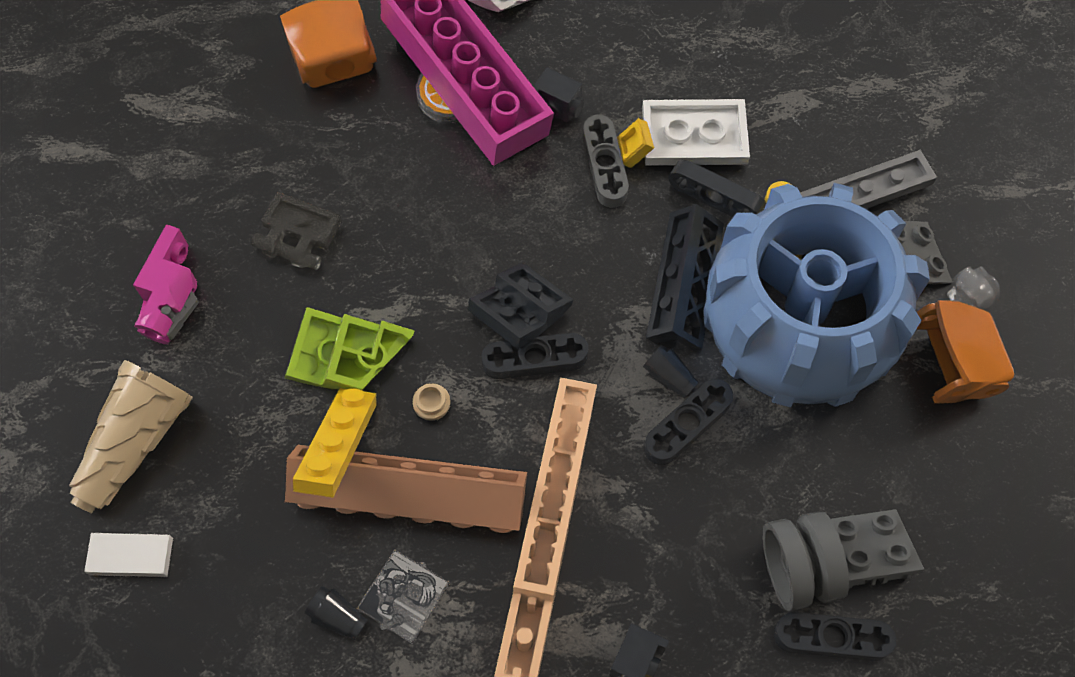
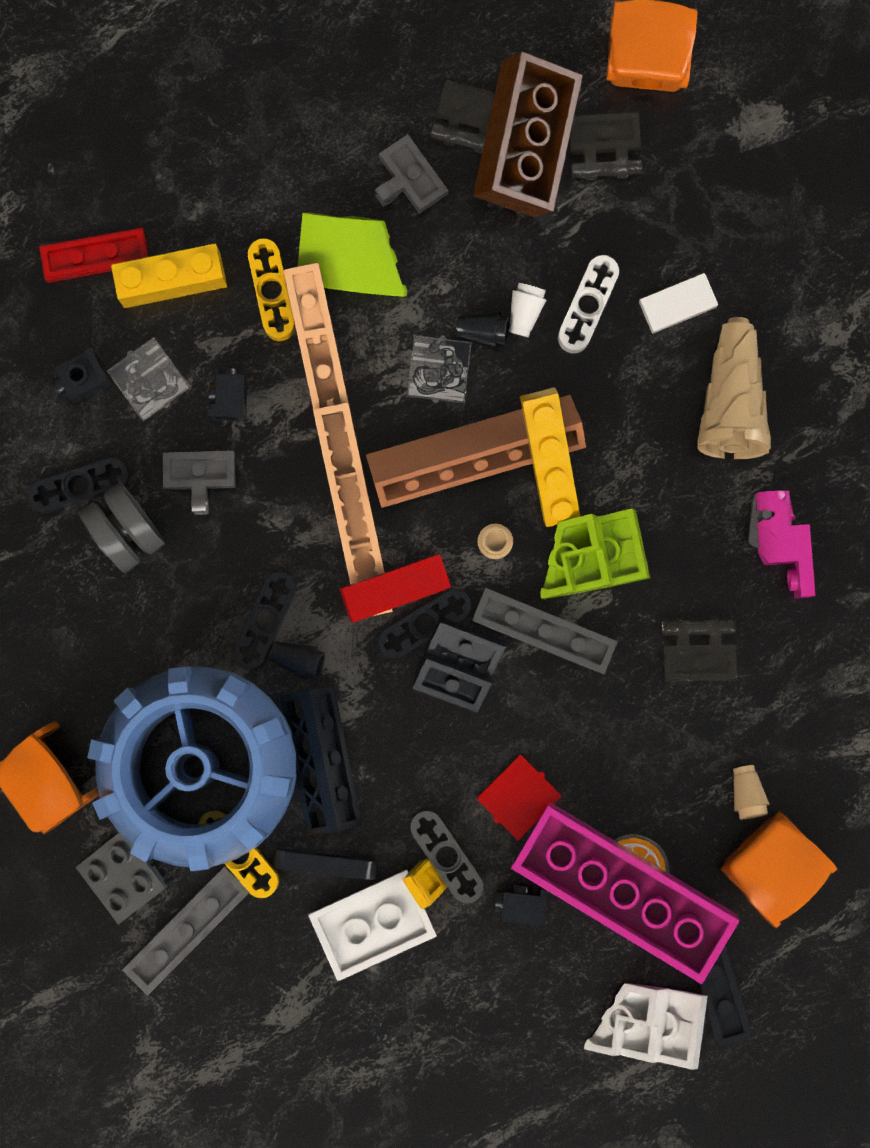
camera: 155 degrees right, 20 degrees up
(199, 621) = (607, 285): none -> white beam
(282, 616) = (525, 308): none -> white cone
(320, 105) = (749, 794): none -> tan cone
(427, 303) = (544, 631): none -> dark grey plate
(519, 183) = (518, 797): none -> red piece
(548, 393) = (395, 588): none -> red tile
(700, 592) = (199, 472): none -> flat silver plate
(877, 548) = (72, 572): dark grey hinge -> none
(975, 288) = (52, 859): clear plate -> none

